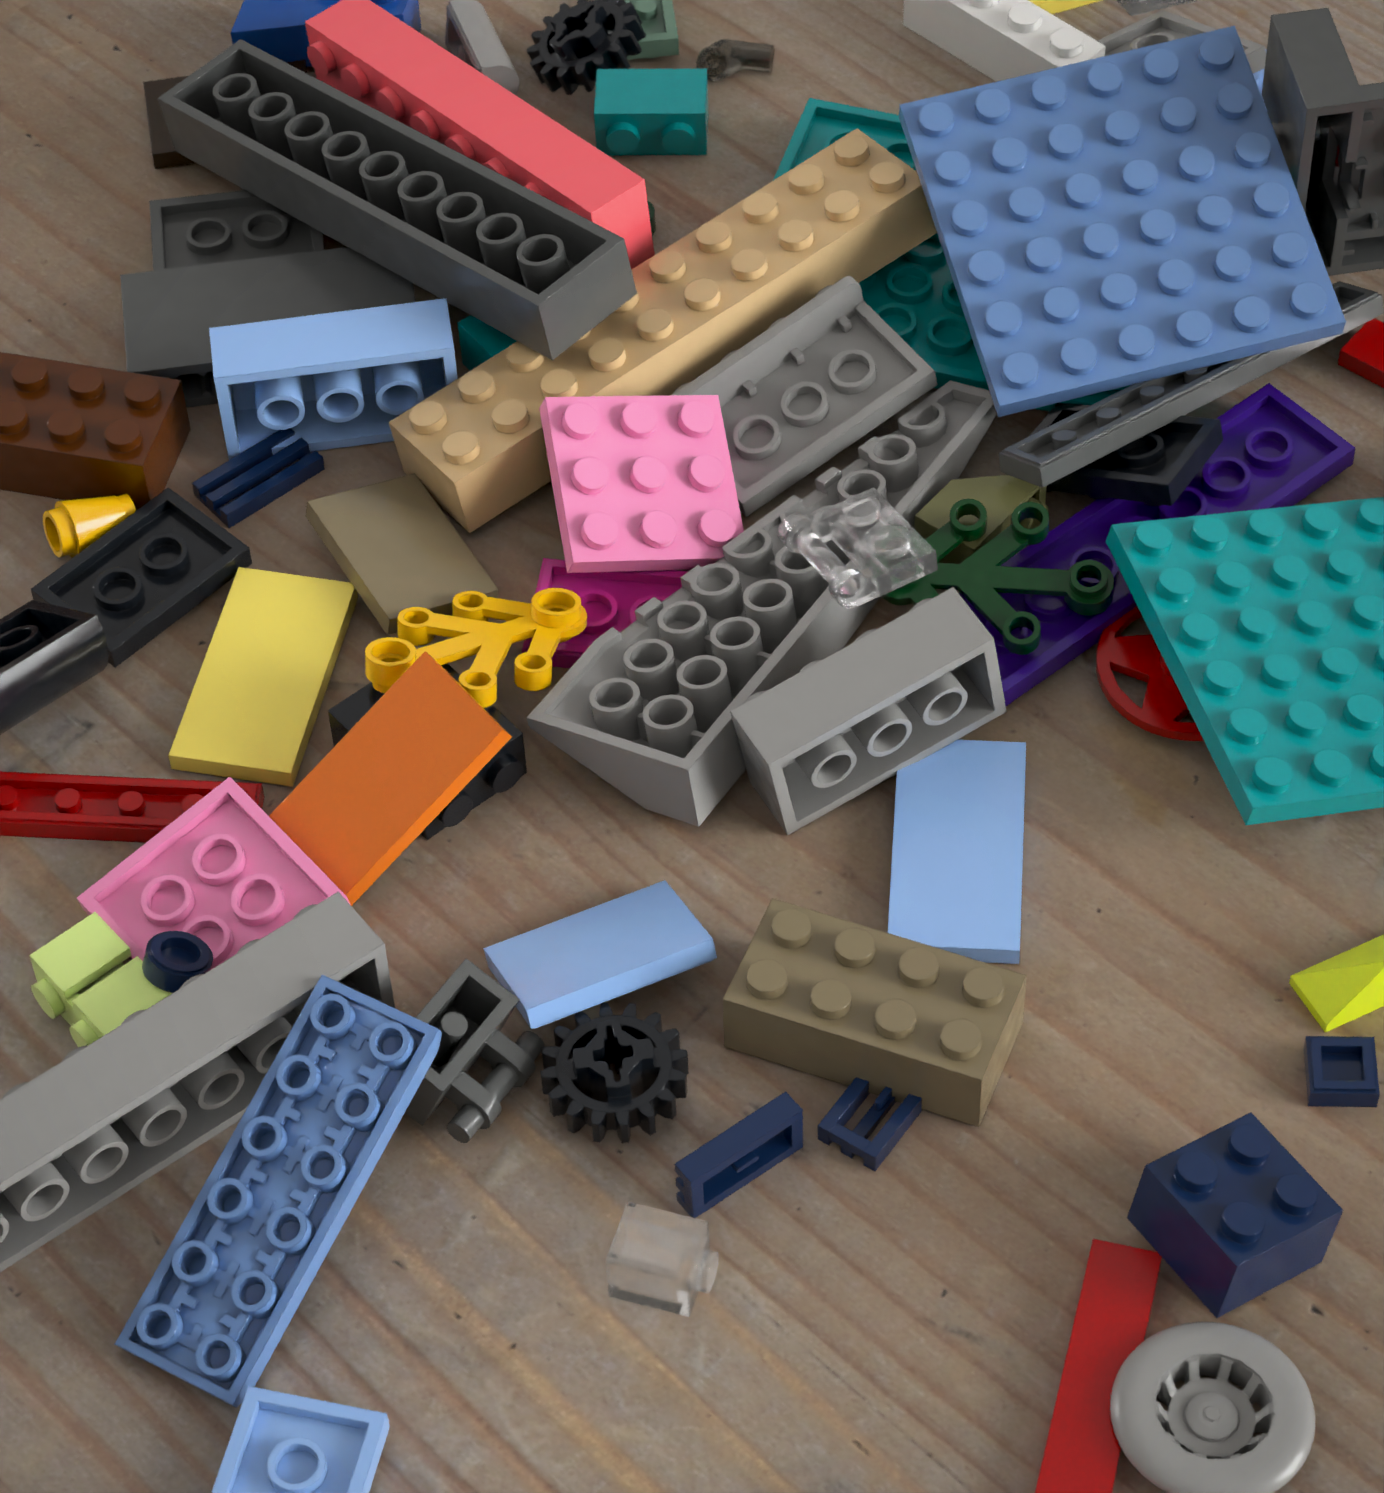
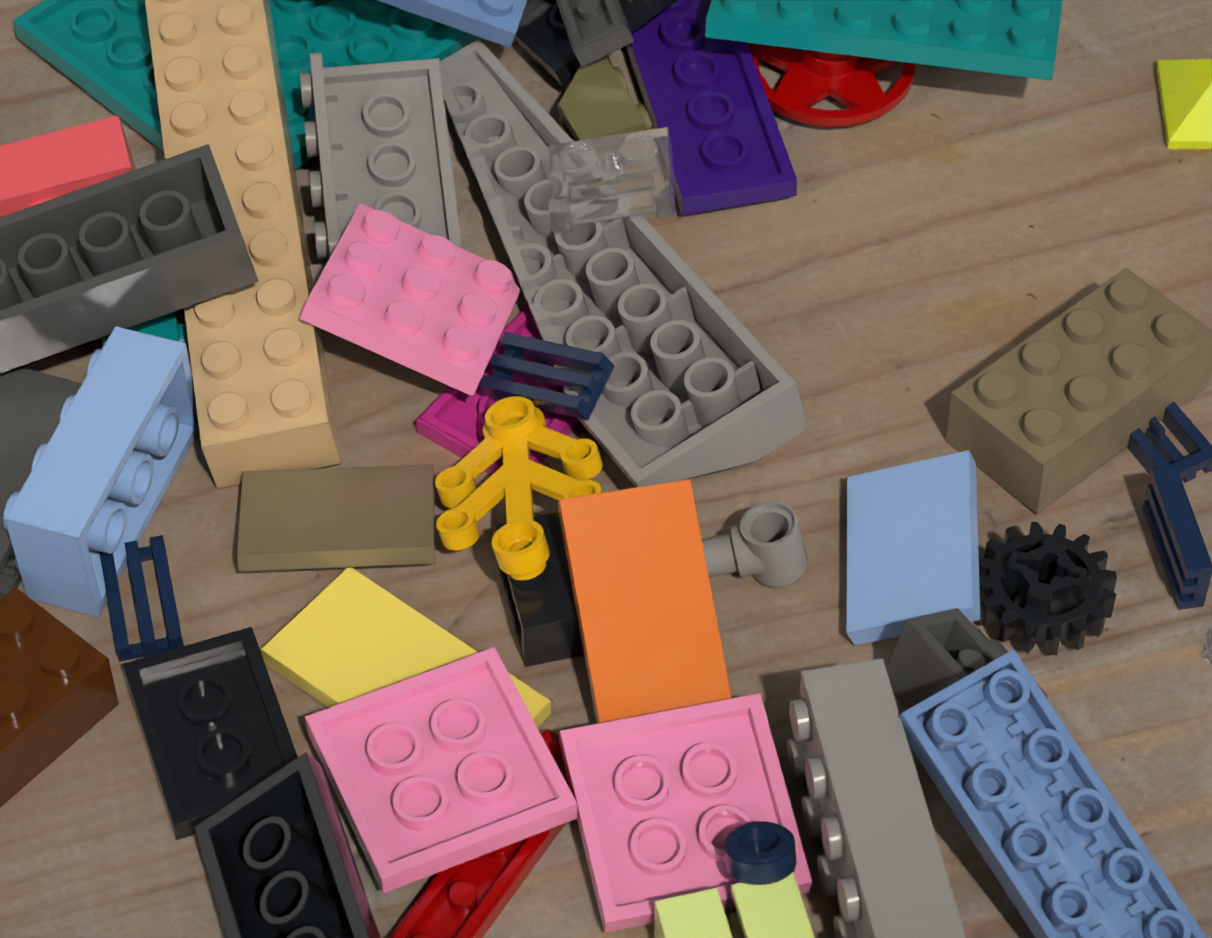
camera: 65 degrees left, 0 degrees up
(81, 522) = (110, 754): yellow cone -> none
(163, 721) = (440, 769): none -> bright pink plate
(534, 840) = (763, 546): none -> light grey pin
(601, 609) = (558, 354): none -> dark blue tile
(870, 710) = (790, 243): light grey brick -> none
(960, 850) = (924, 279): light blue tile -> none
(983, 576) = (685, 127): dark green plant -> none

